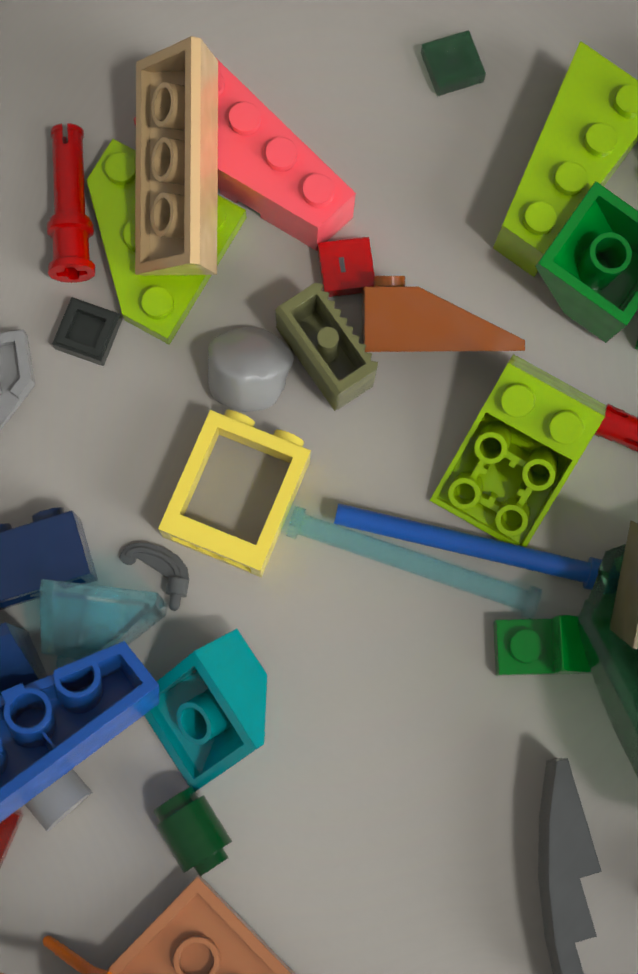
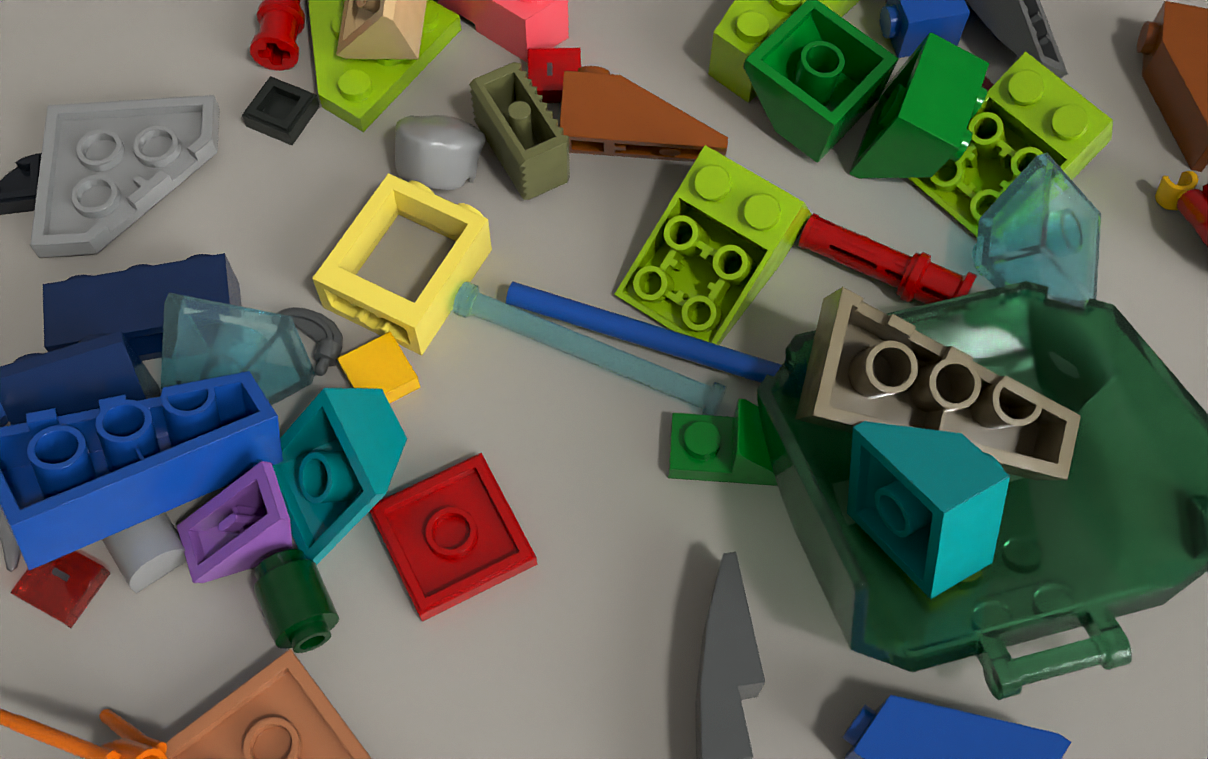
camera: 10 degrees right, 15 degrees down
(130, 773) = (237, 527): none -> medium lavender slope
(227, 601) = (380, 366): none -> yellow tile
(318, 753) = (452, 536): none -> red tile

